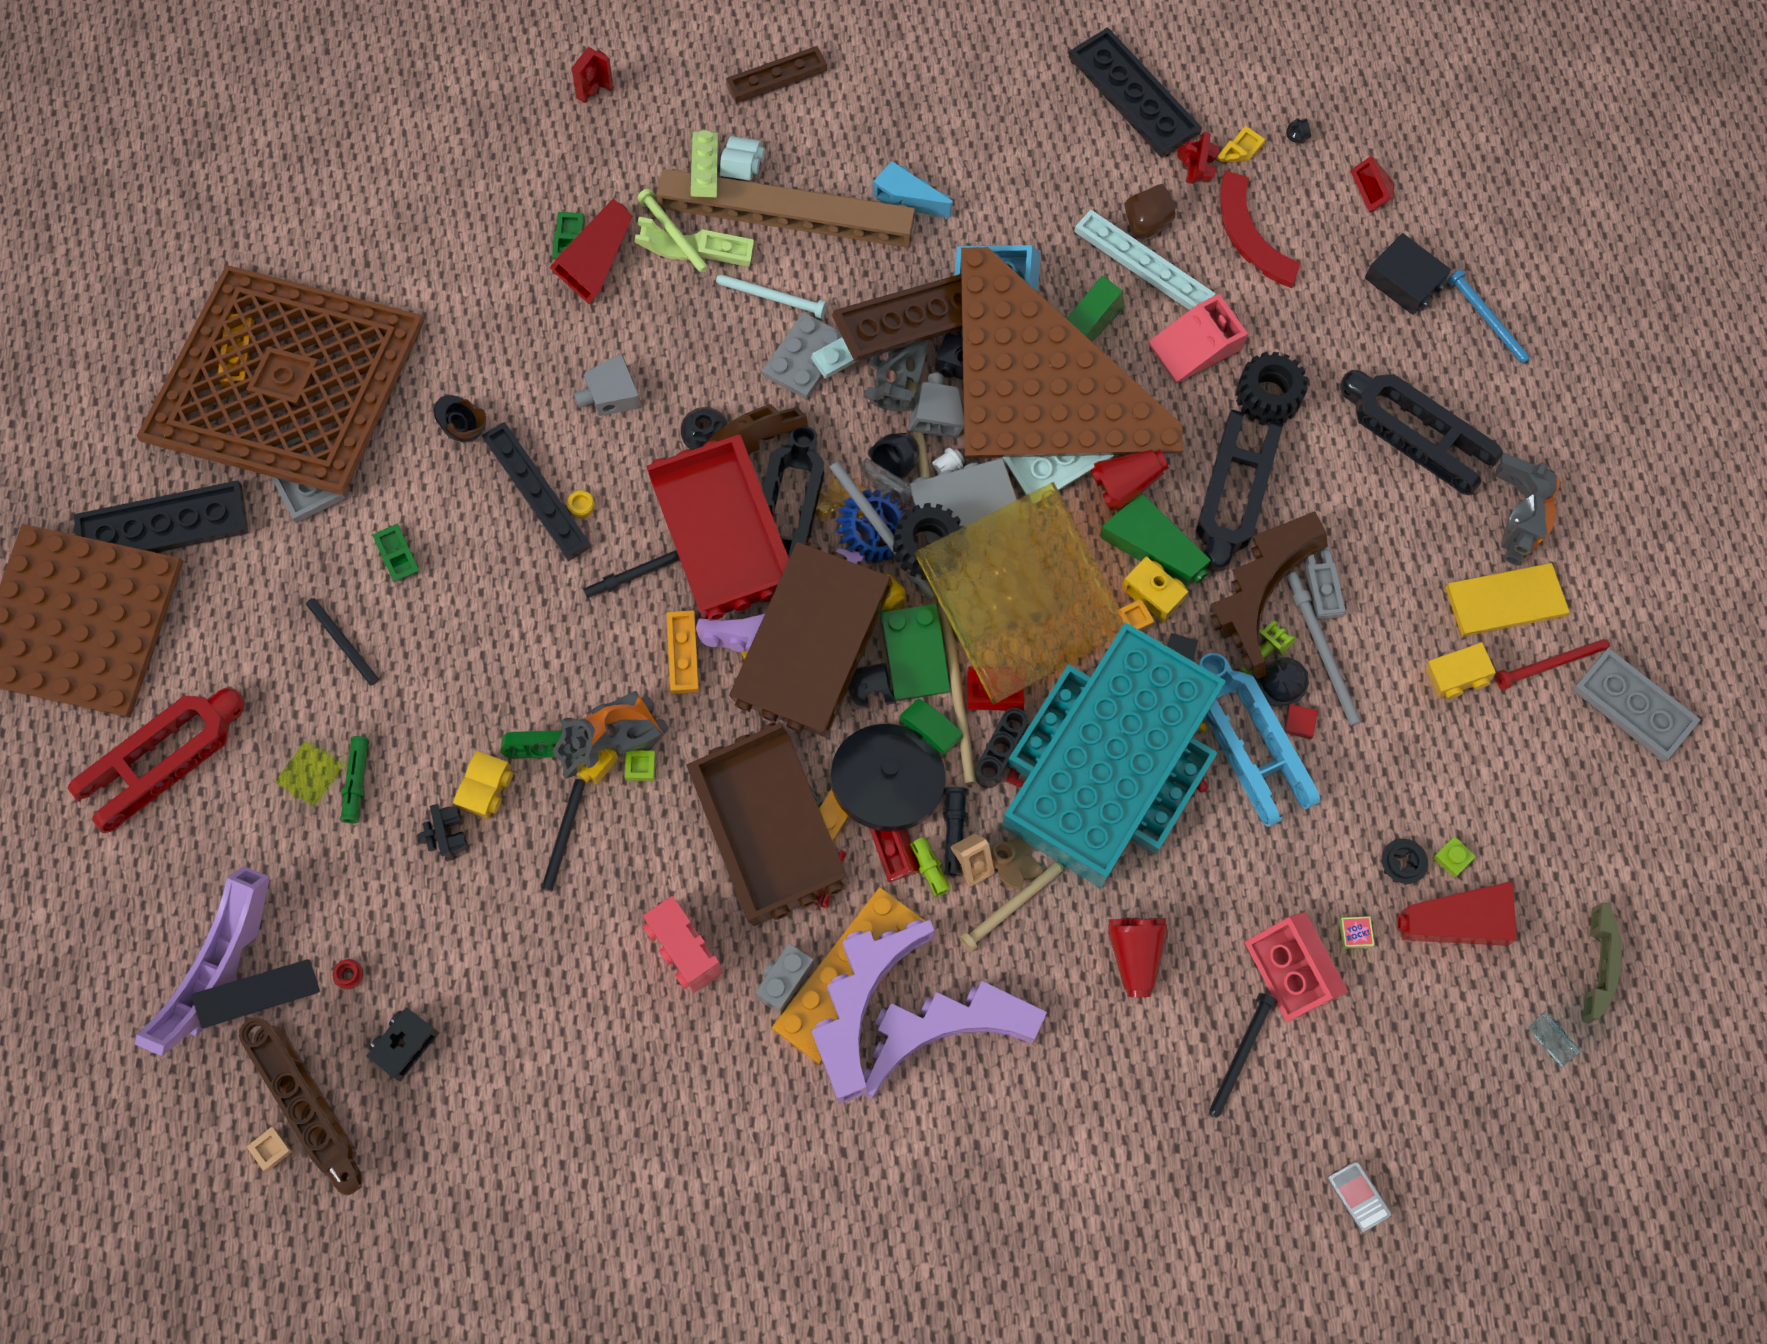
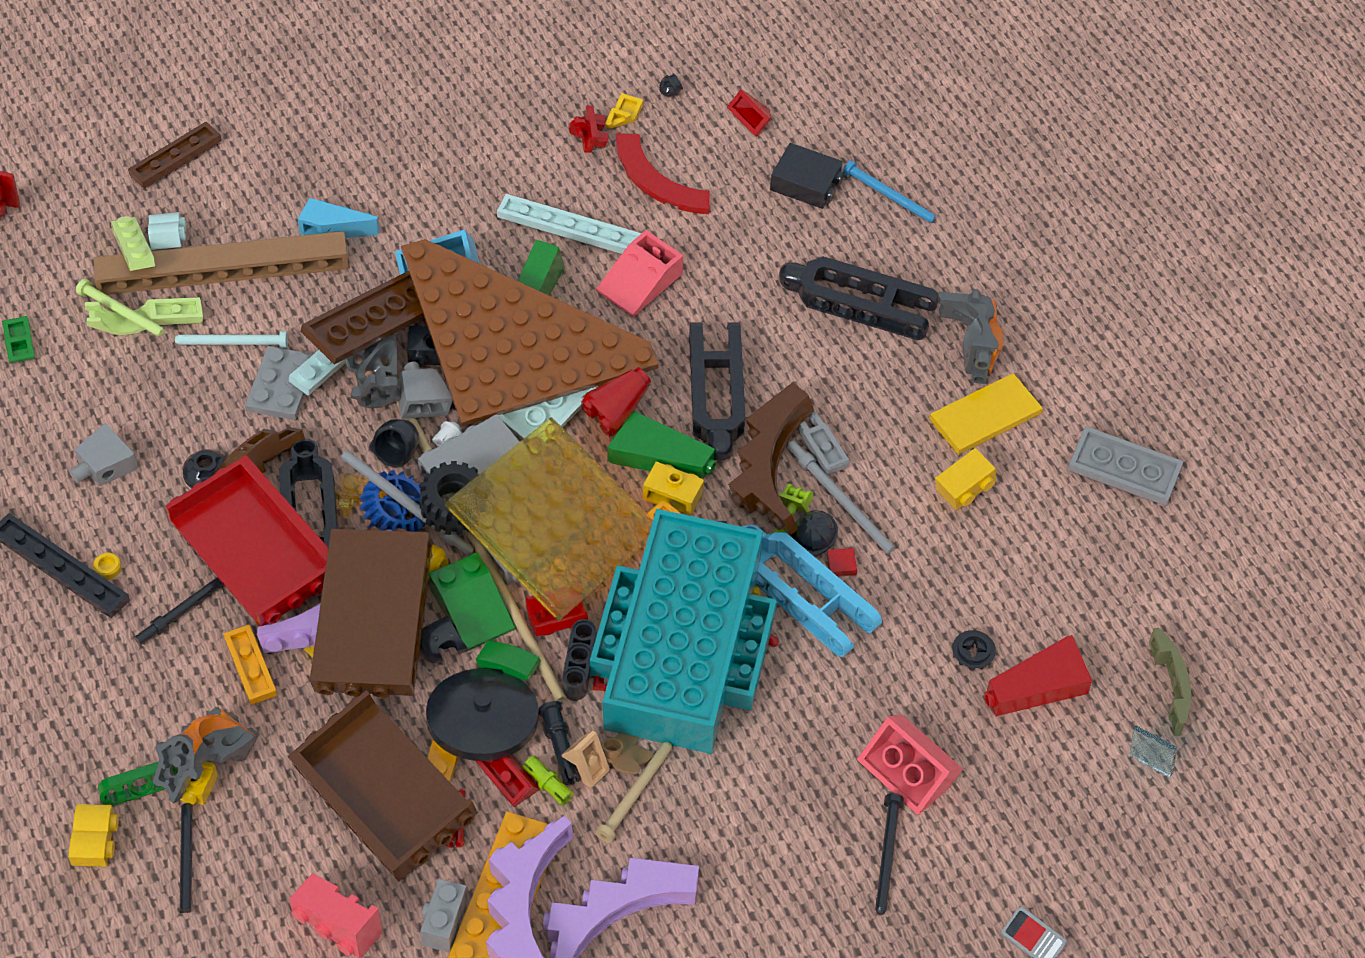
camera: 20 degrees left, 15 degrees down
(447, 843) = (62, 876): black hips -> none
(591, 253) = (48, 346): red slope -> none
(640, 765) = (241, 774): lime plate -> none
(876, 477) = (388, 459): clear tile -> none
(1135, 92) = (512, 90): black plate -> none
(1138, 952) = (763, 791): red cone -> none
(1150, 211) = (560, 181): reddish brown piece -> none
(1276, 370) = (719, 281): black tyre -> none
(1356, 932) = (953, 721): tile -> none
(1454, 857) = (1015, 634): lime plate -> none
(1505, 679) = (1007, 477): red bar -> none

